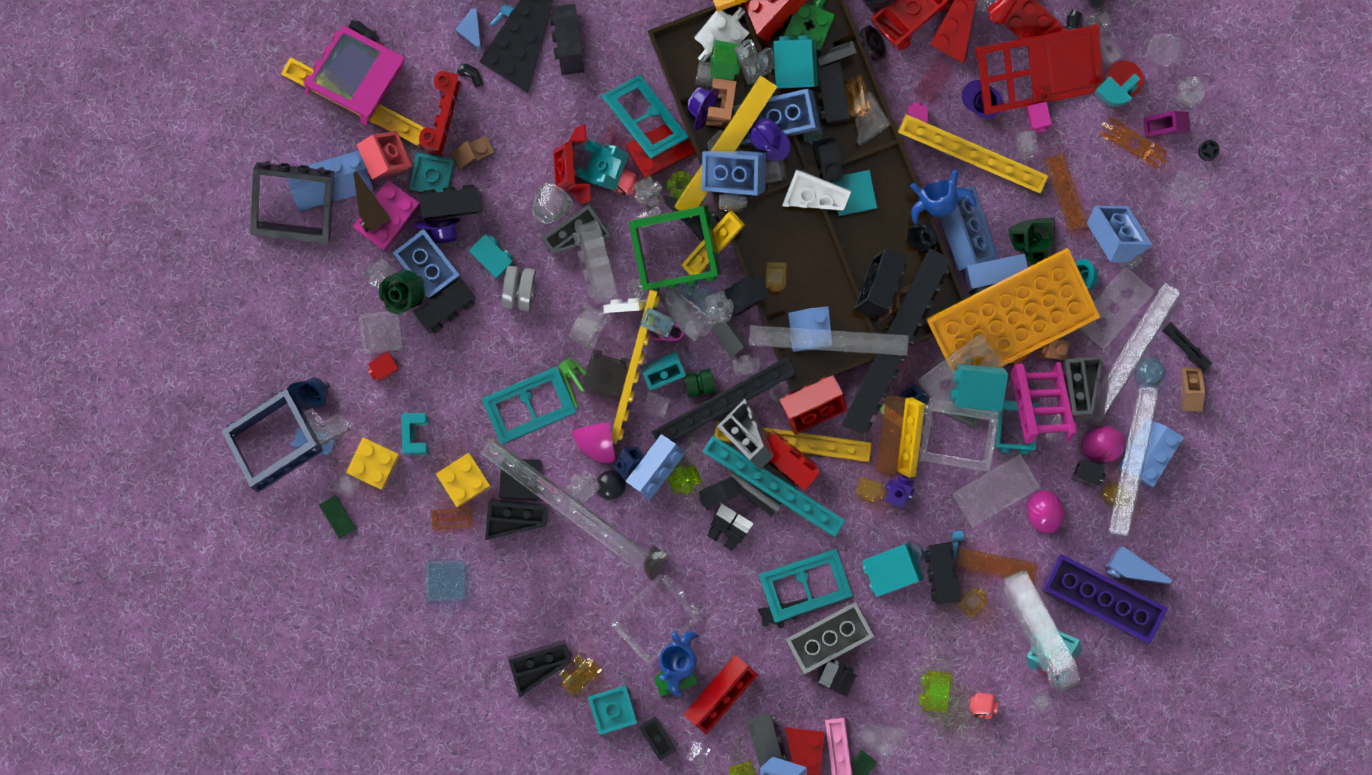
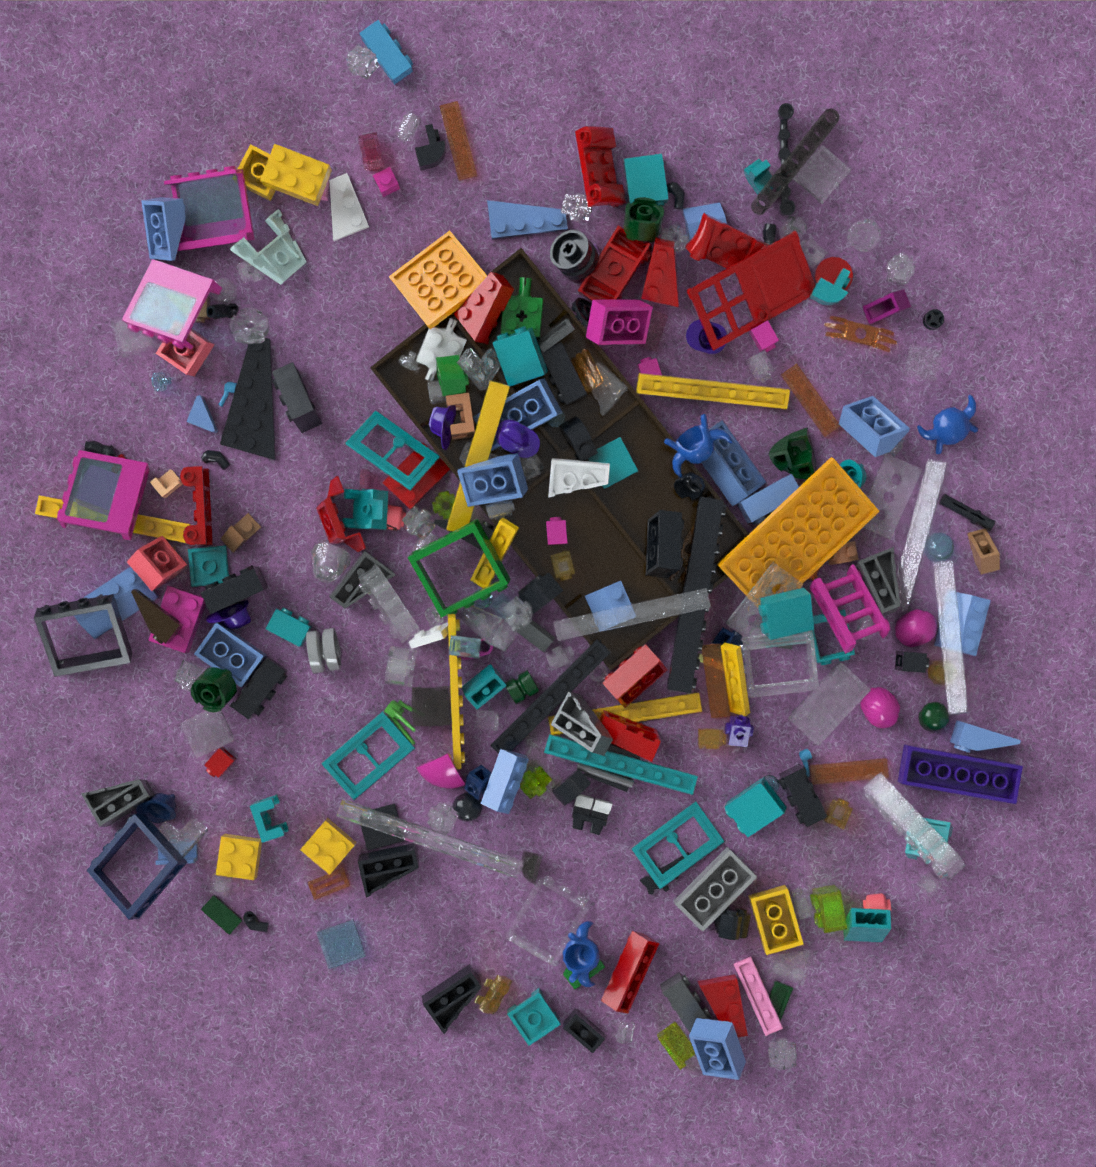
camera: 15 degrees left, 5 degrees up
(272, 373) = (117, 801): none -> dark grey wedge
(365, 534) = (253, 923): none -> black arm
(417, 83) = (167, 483): none -> light nougat panel
(686, 37) = (409, 361): none -> clear tile
(779, 242) = (556, 531): none -> dark pink brick
(879, 686) = (775, 919): none -> yellow brick
(901, 59) = (619, 322): none -> dark pink brick
(909, 680) = (801, 904): none -> clear brick
(968, 718) = (867, 925): none -> teal brick
(1095, 537) = (933, 716): none -> dark green hair
(1195, 257) = (951, 426): none -> blue piece

